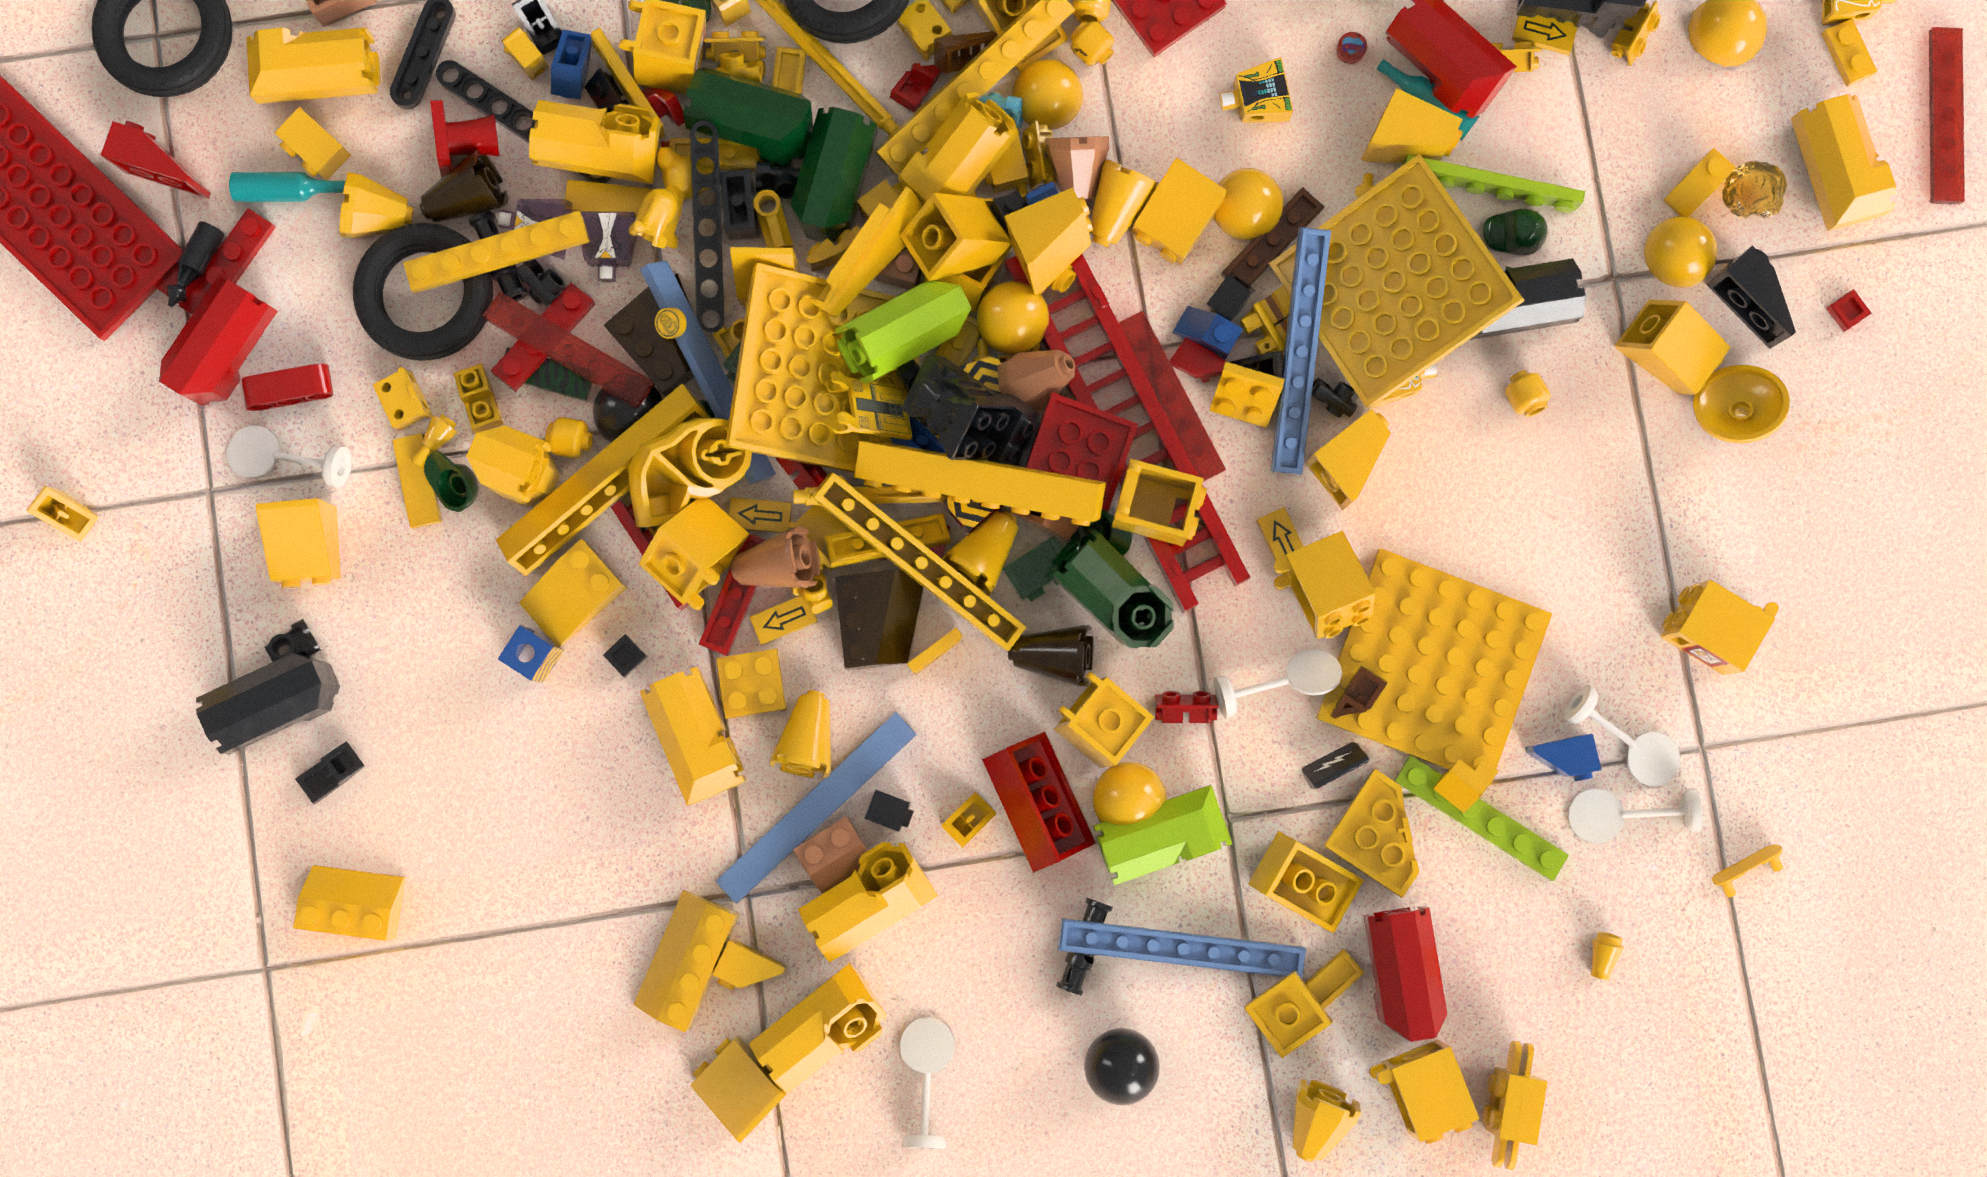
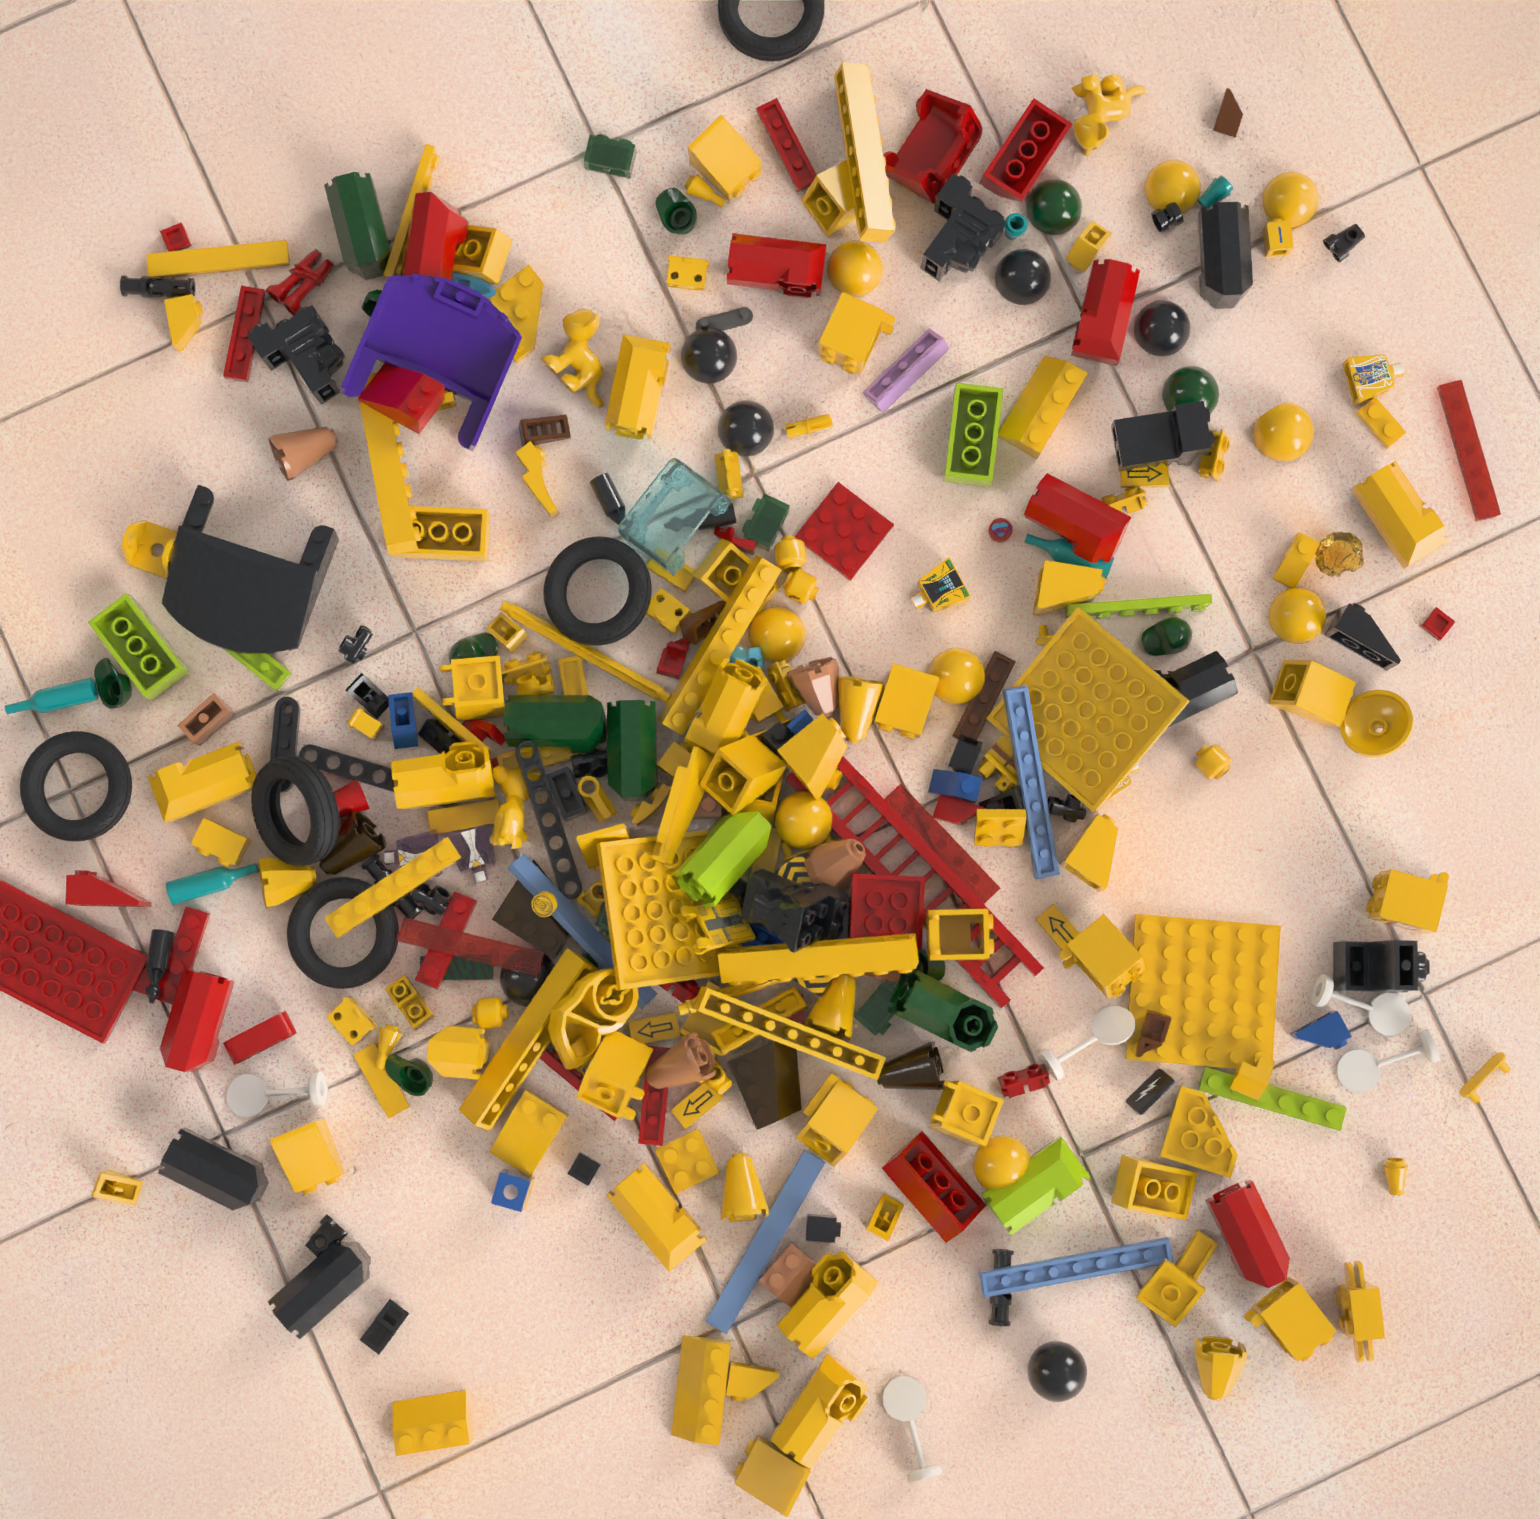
camera: 15 degrees left, 0 degrees up
(182, 525) = (214, 1170): none -> black brick
(435, 124) = (320, 803): none -> black tyre
(944, 689) = (837, 1123): none -> yellow slope
(1661, 694) = (1379, 966): none -> black brick

